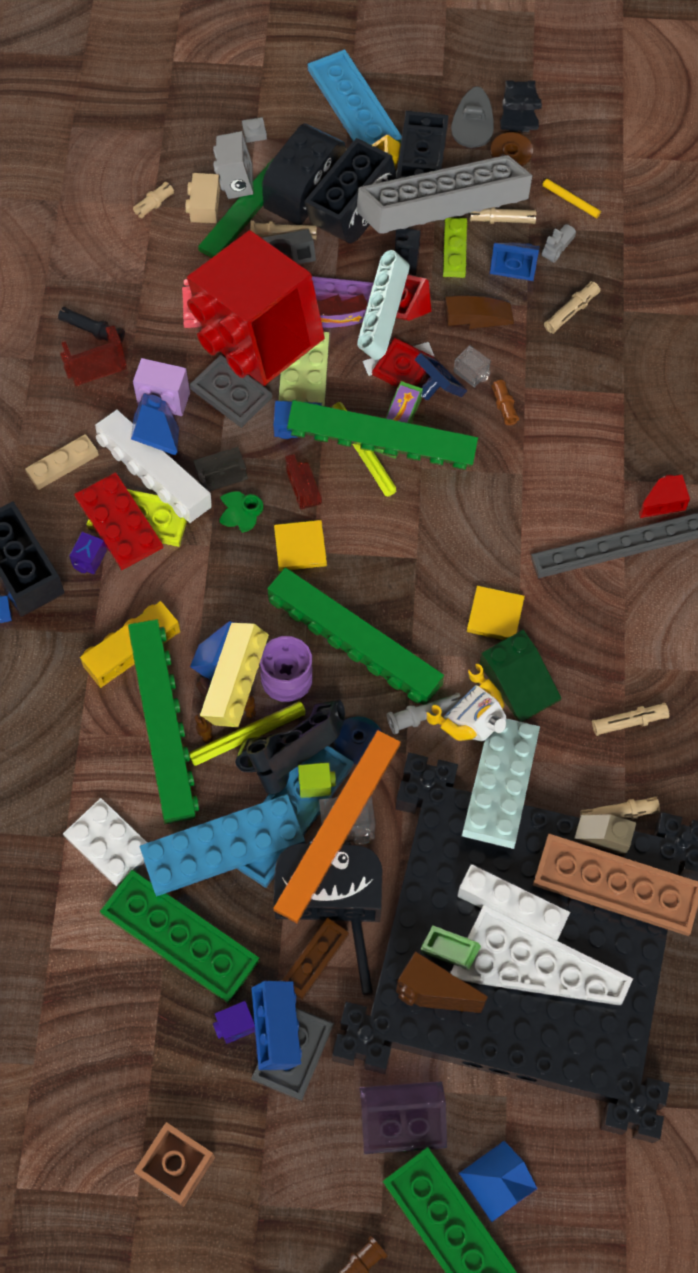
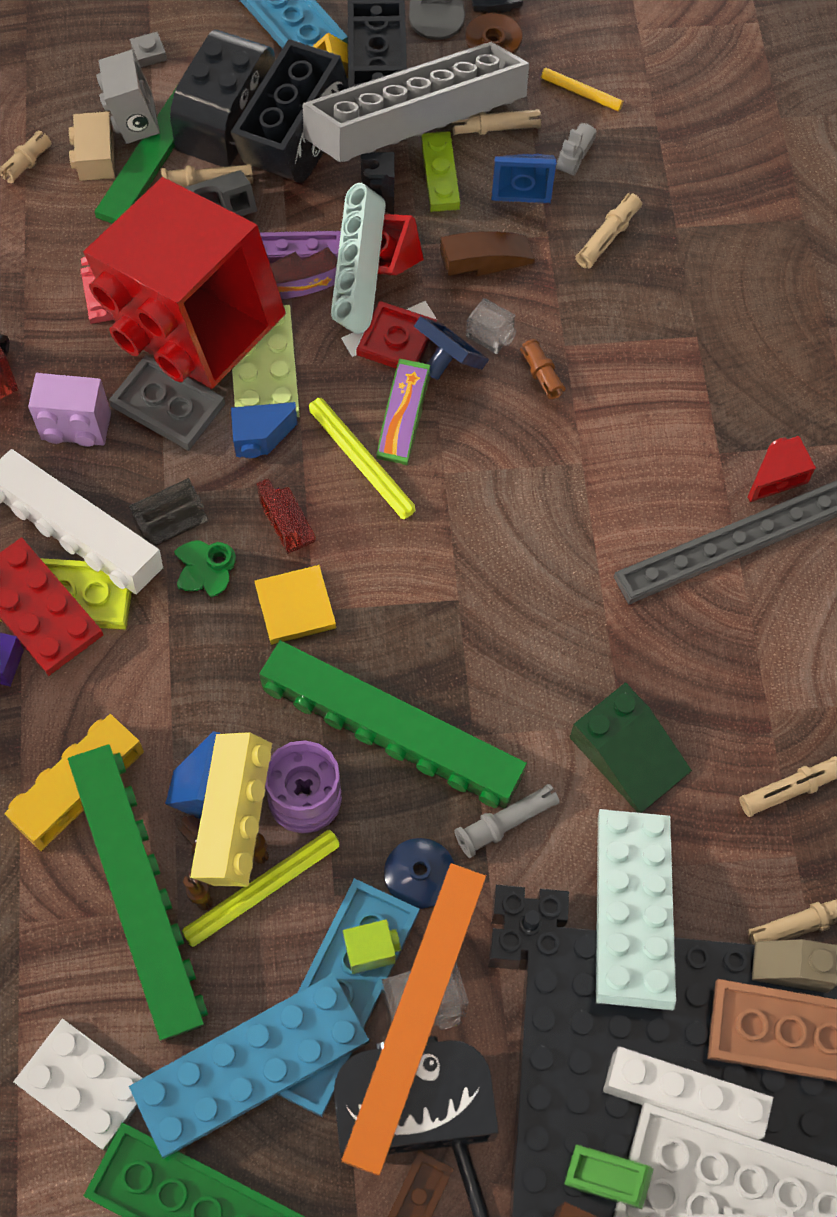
camera: 10 degrees left, 0 degrees up
(155, 425) = (68, 463): blue slope -> none
(282, 752) = (315, 913): black connector -> none
(382, 434) = (384, 434): green brick -> none
(475, 714) = (579, 813): torso -> none
(495, 613) = (580, 663): yellow tile -> none

